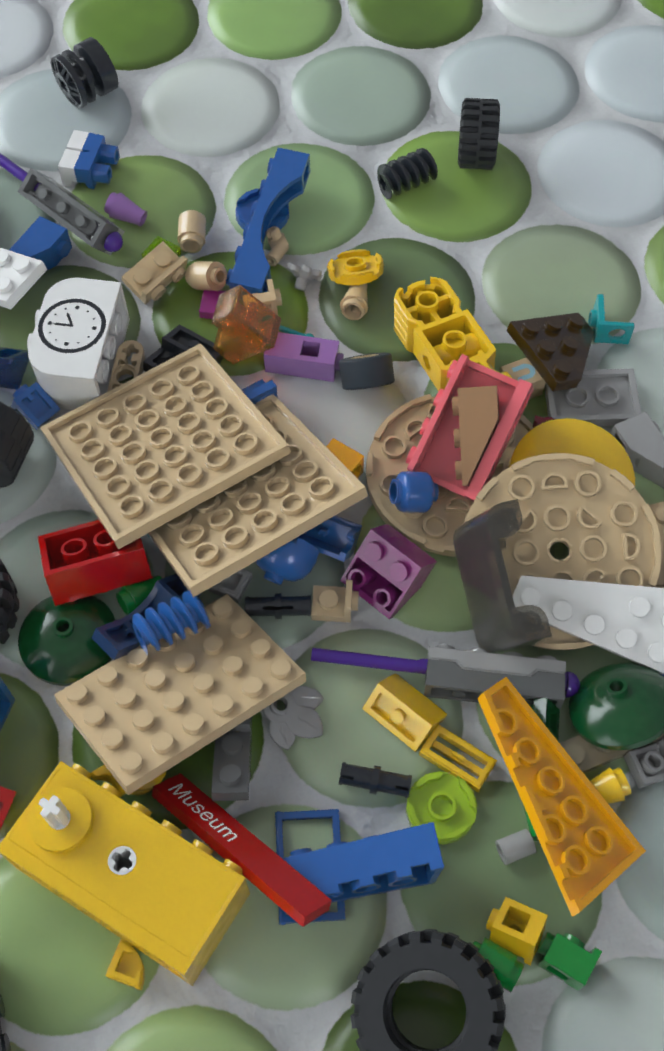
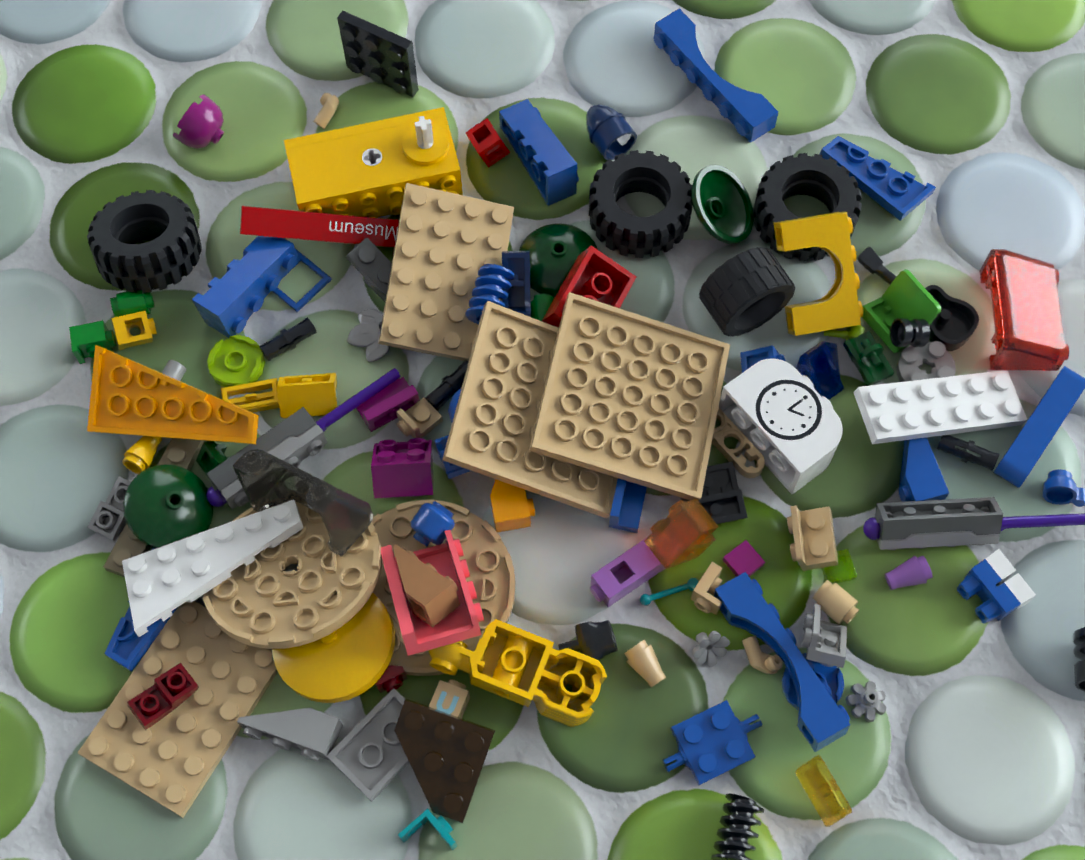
camera: 135 degrees right, 5 degrees up
(86, 1016) = (330, 104): none -> tan arm
(206, 275) = (772, 568): tan brick -> none
(229, 210) = (824, 640): none -> light grey bracket
(242, 178) = (866, 701): none -> light grey plant
(328, 156) = (823, 791): none -> clear yellow slope
(346, 633) = (384, 405): none -> magenta panel
(355, 267) = (675, 690): yellow tile -> none
(364, 229) = (712, 742): none -> blue plate
(366, 371) = (565, 597): black wheel -> none
(377, 339) = (593, 639): none -> black piece

